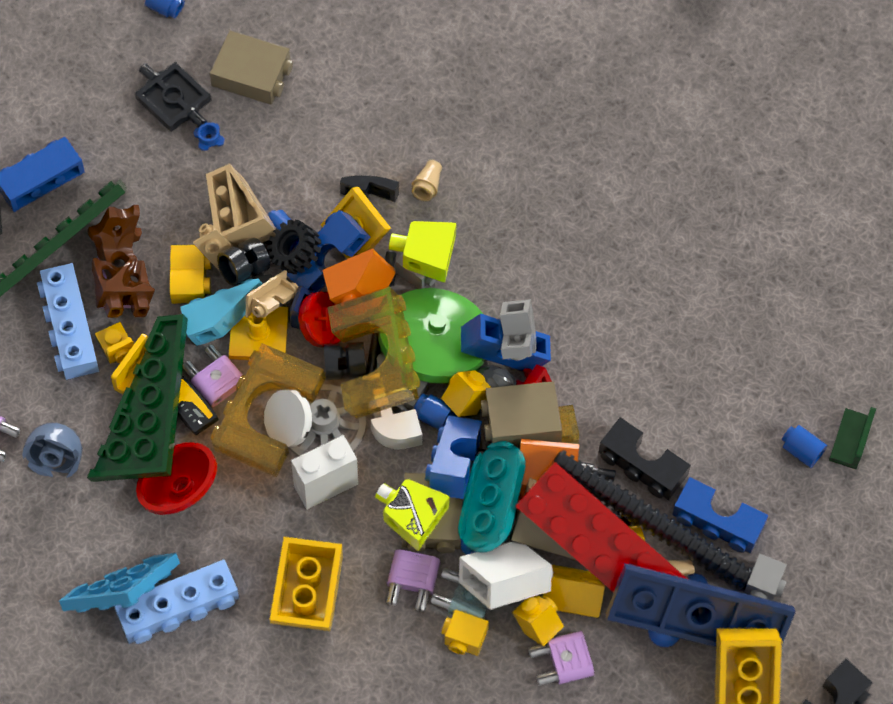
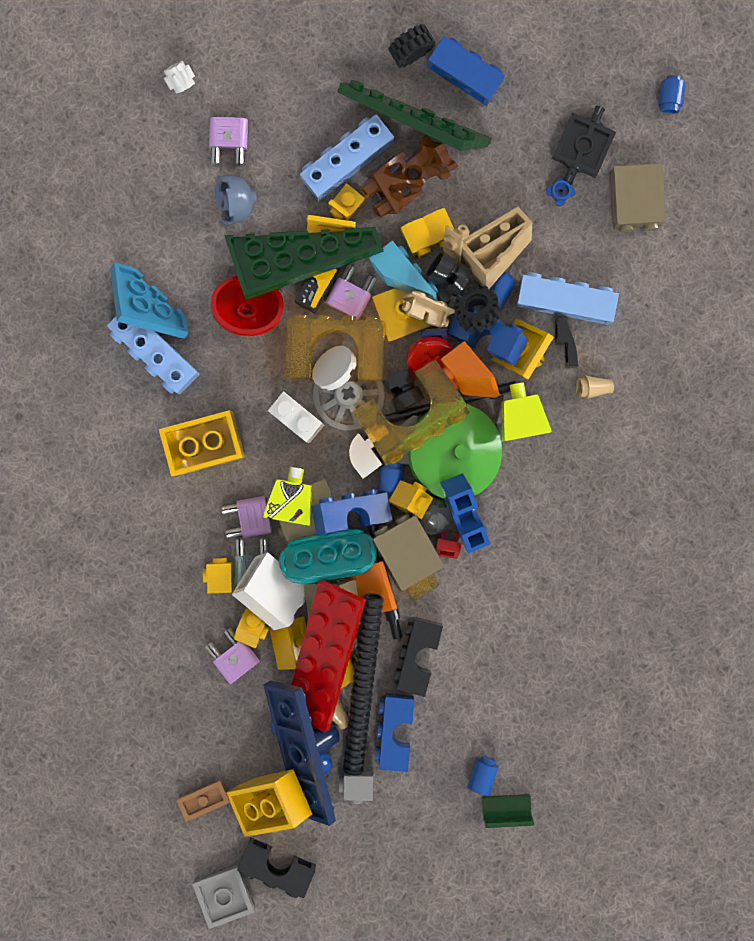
camera: 65 degrees right, 25 degrees up
(323, 169) = (567, 299): none -> light blue brick
(518, 330) = (472, 523): light grey brick -> none

